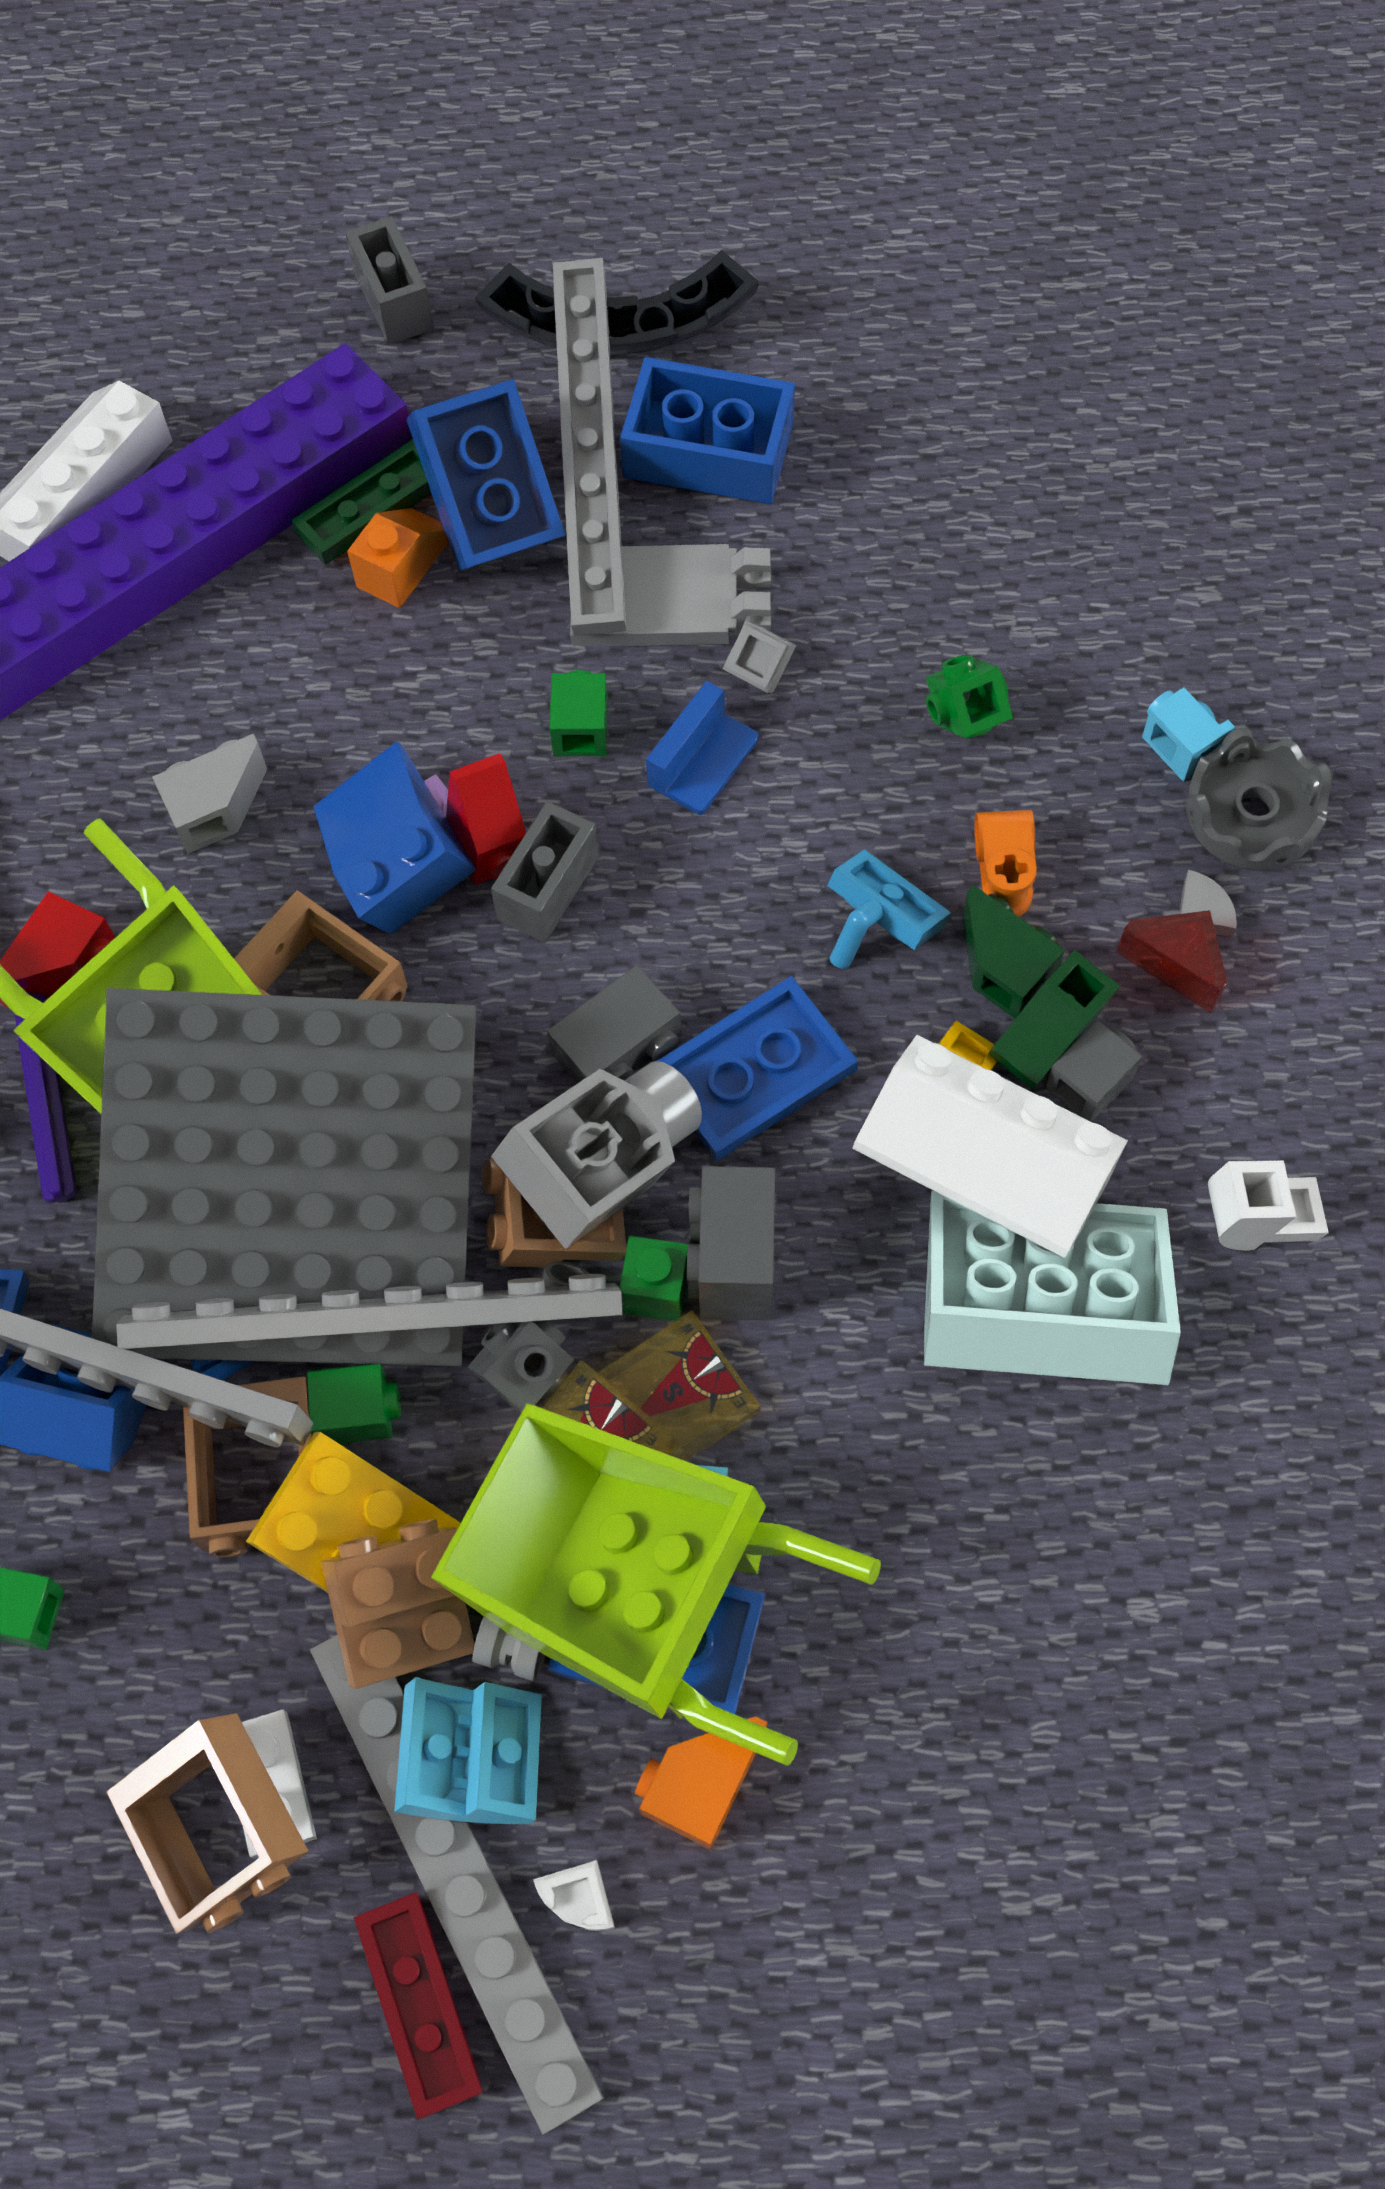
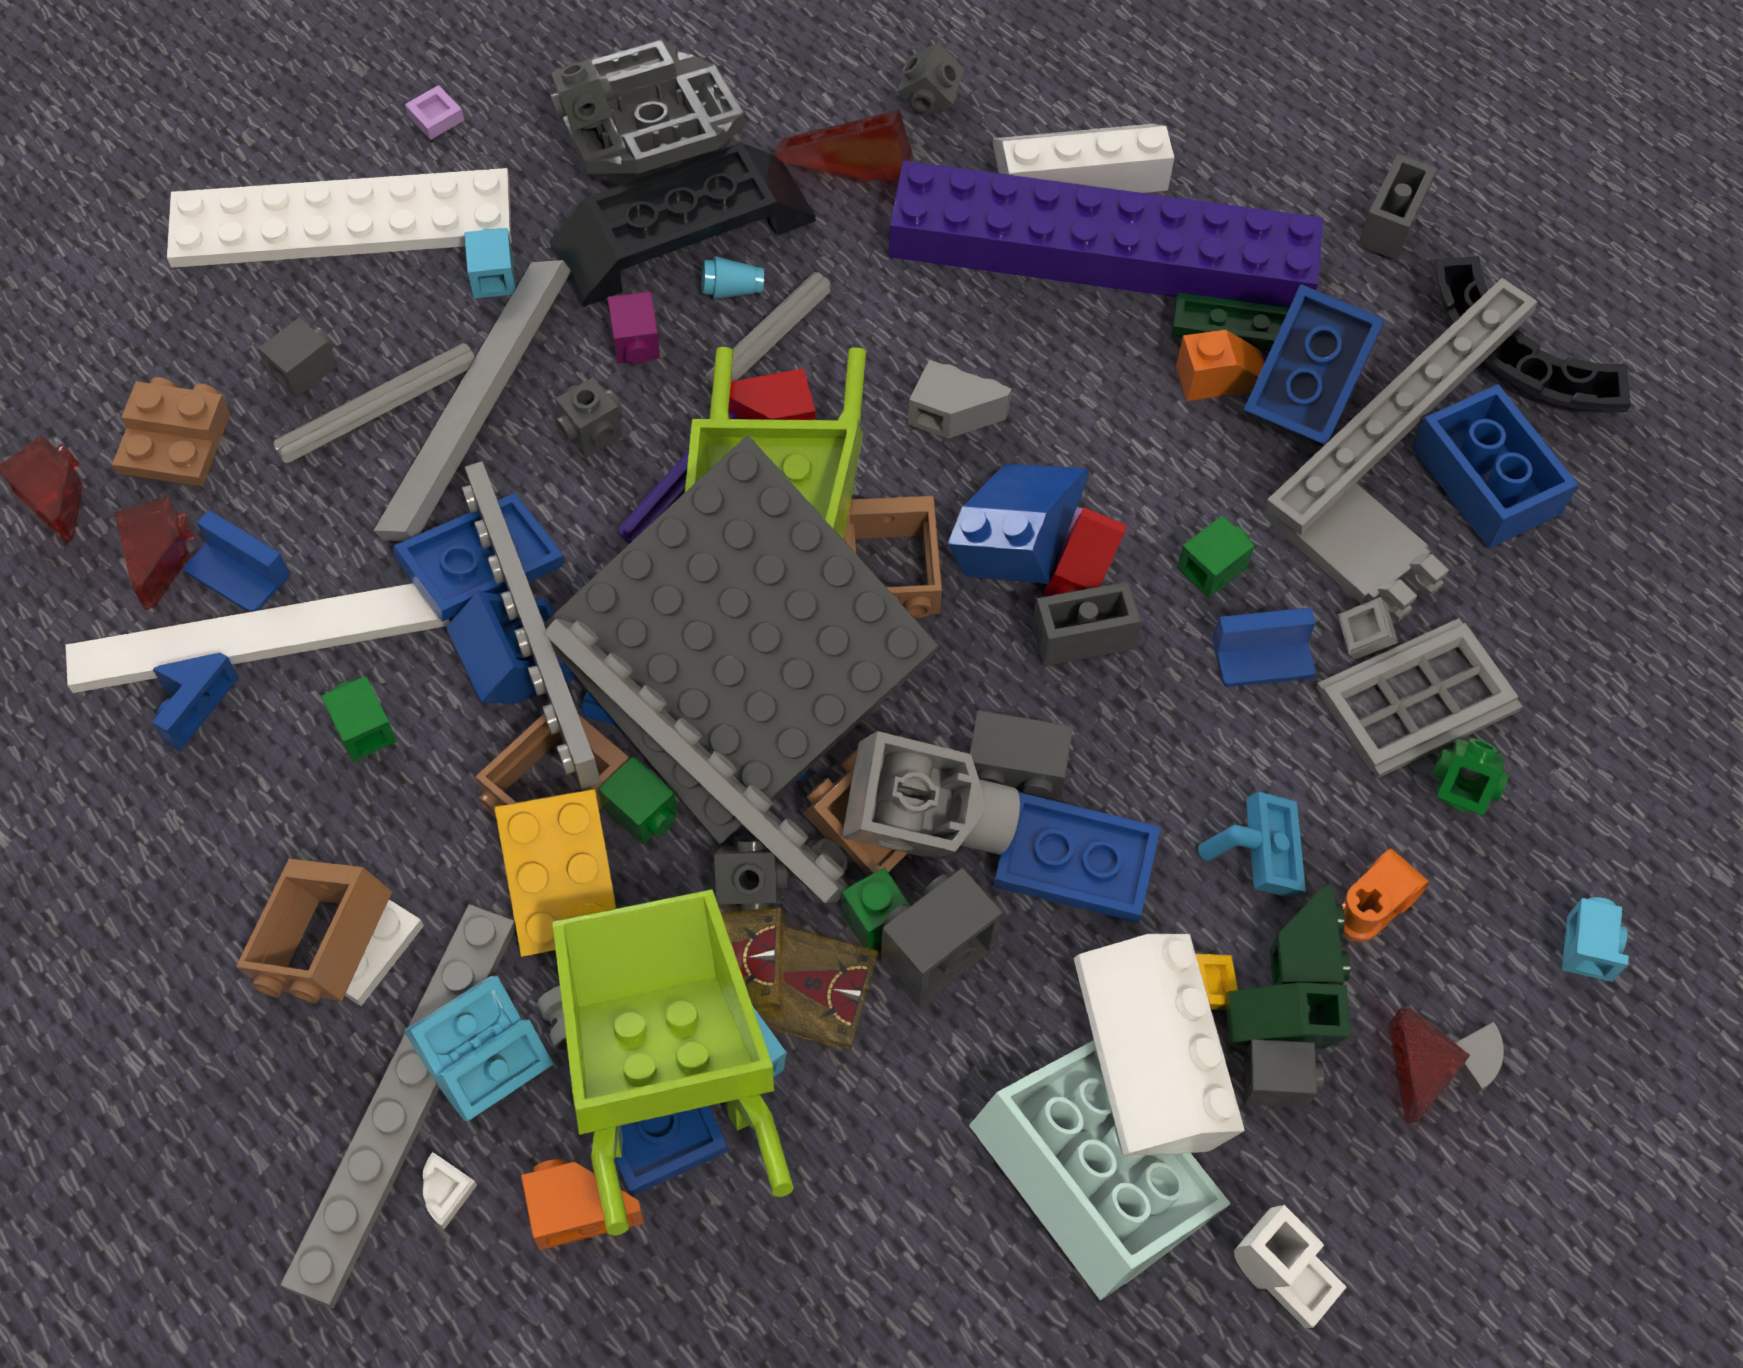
camera: 45 degrees right, 5 degrees down
(391, 1609) = (517, 925): medium nougat plate -> none
(418, 2005) = (303, 1146): dark red plate -> none
(855, 675) = (1418, 697): none -> light grey piece
(1265, 771) = (1611, 1002): dark grey plate -> none

